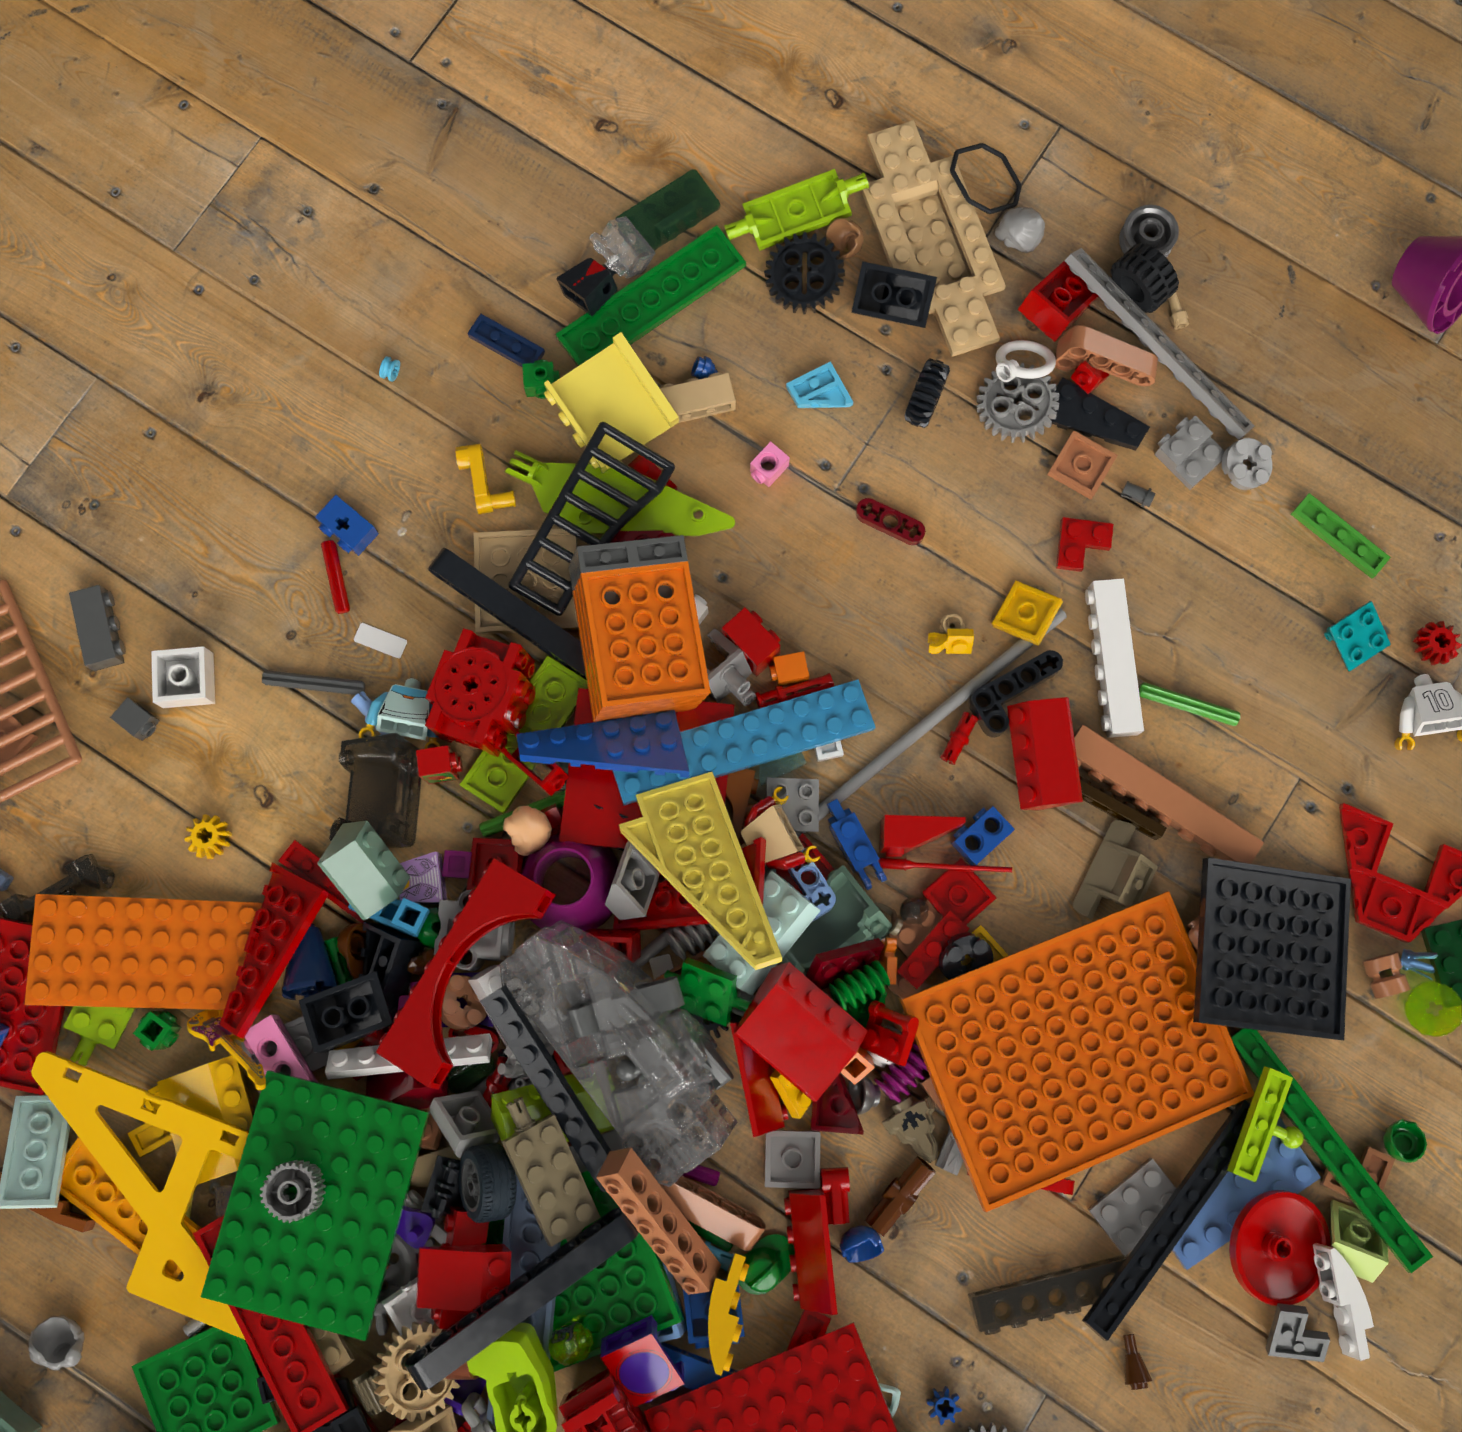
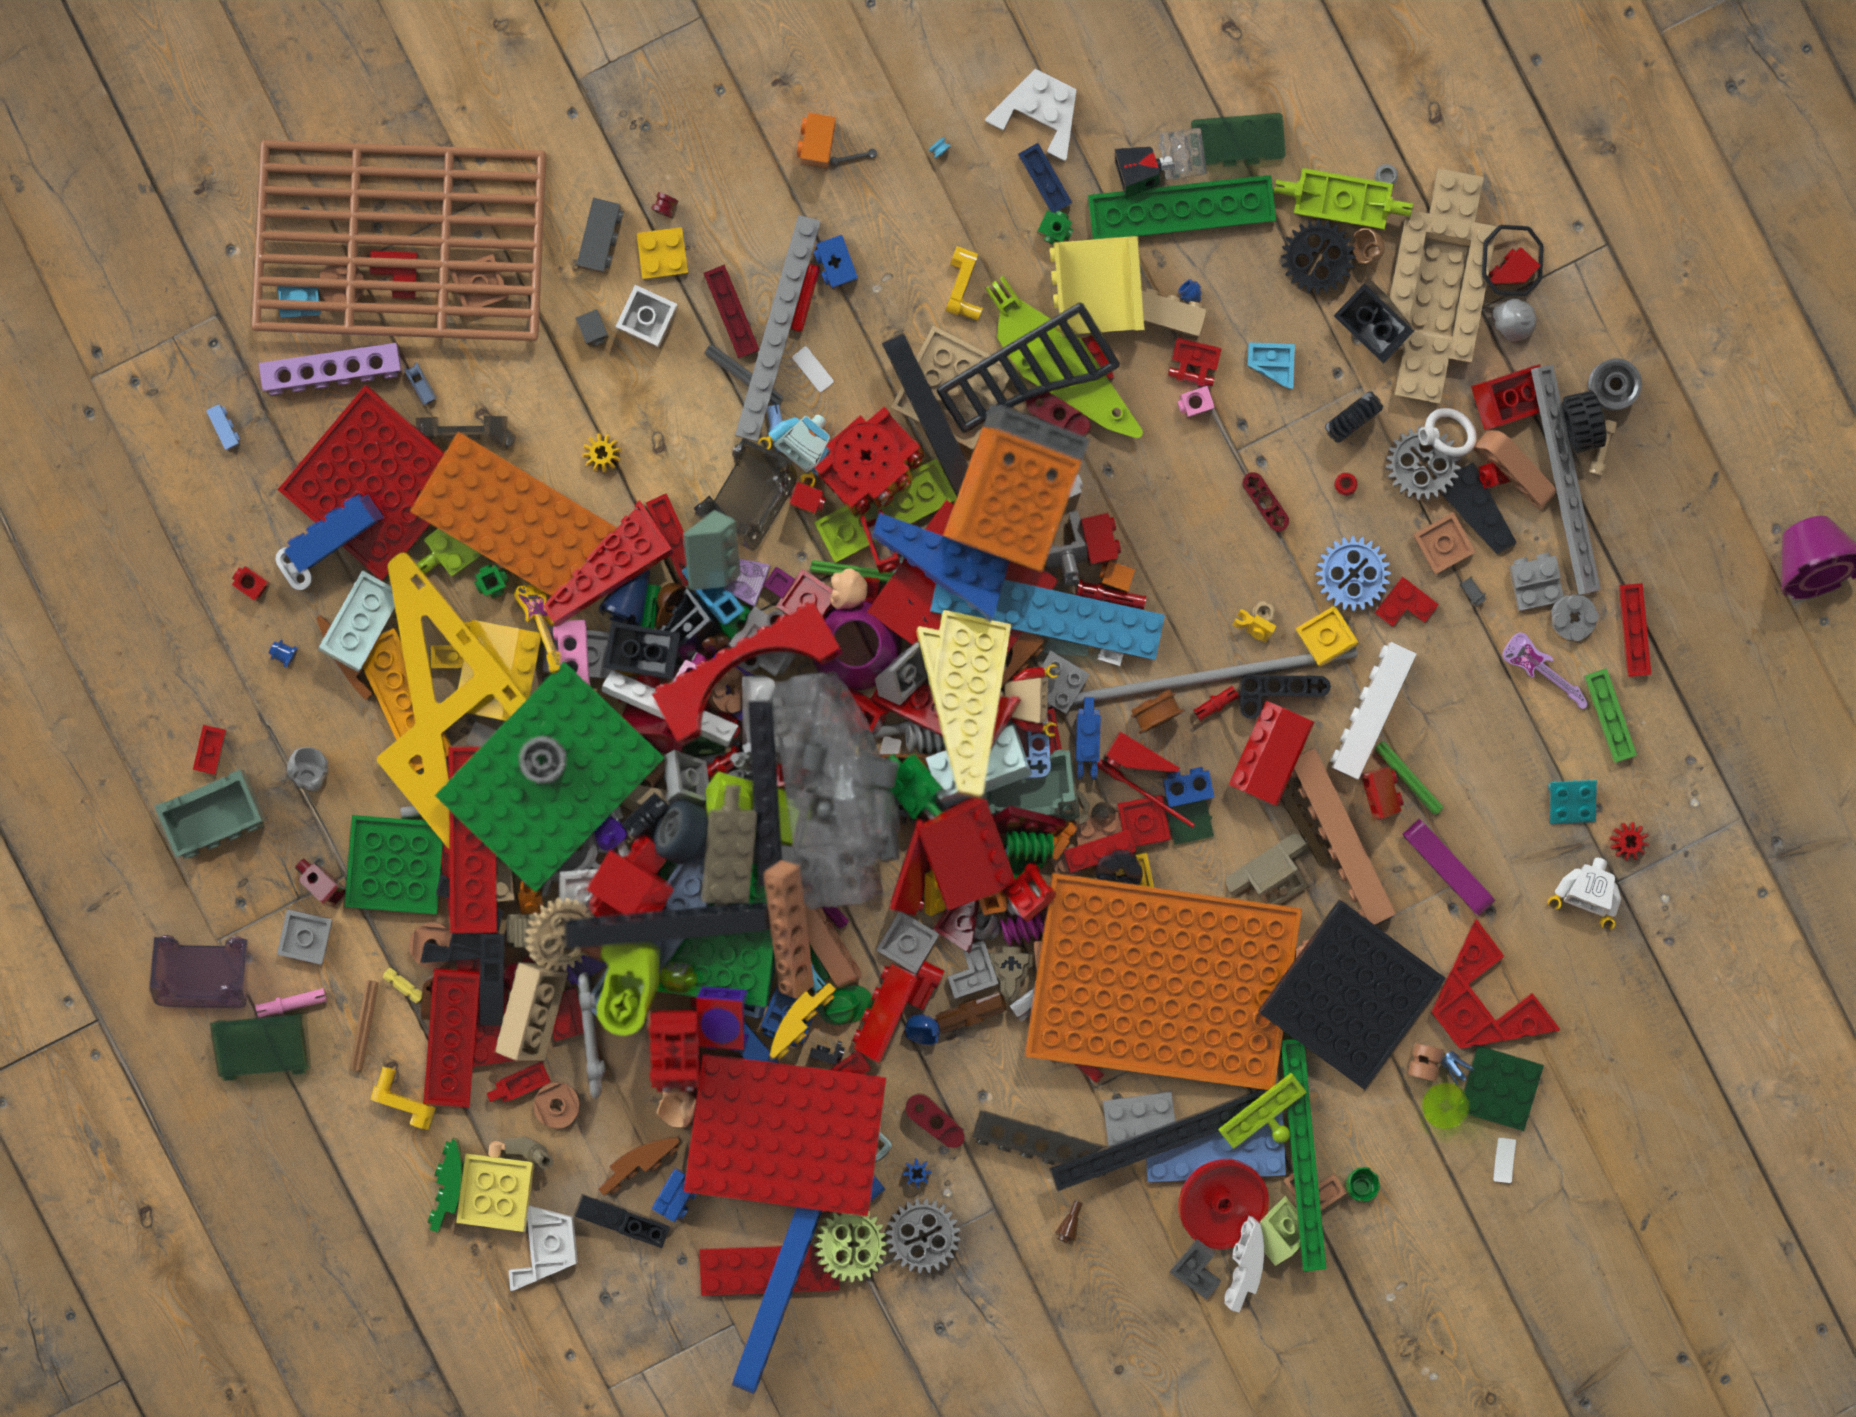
camera: 25 degrees right, 10 degrees up
(147, 564) = (664, 204): none -> dark red wheel
(171, 612) = (662, 253): none -> yellow plate
(263, 420) = (817, 141): none -> orange brick
(268, 628) = (731, 311): none -> dark red plate
(322, 621) = (777, 328): none -> light grey plate
(327, 411) = (871, 153): none -> dark grey hinge
(368, 1349) = (530, 900): none -> orange plate
(466, 277) = (1044, 101): none -> white wing
(742, 423) = (1197, 355): none -> red plate
(772, 1333) = (823, 1053): none -> black bracket
(821, 167) = (1386, 173): none -> light grey plate
(885, 1151) = (978, 976): none -> light grey plate
(906, 777) = (1156, 711): none -> dark orange wheel
(952, 1340) = (949, 1133): none -> dark red piece
(956, 456) = (1352, 480): none -> red plate
(993, 184) = (1516, 269): none -> red slope
(1004, 883) = (1198, 814): none -> clear green piece
(1037, 546) = (1367, 588): none -> light blue gear
(1173, 732) = (1381, 792): none -> red slope
(1221, 524) = (1522, 653): none -> lavender piece
(1283, 768) = (1448, 867): none -> magenta beam
(1311, 444) = (1634, 630): none -> red plate

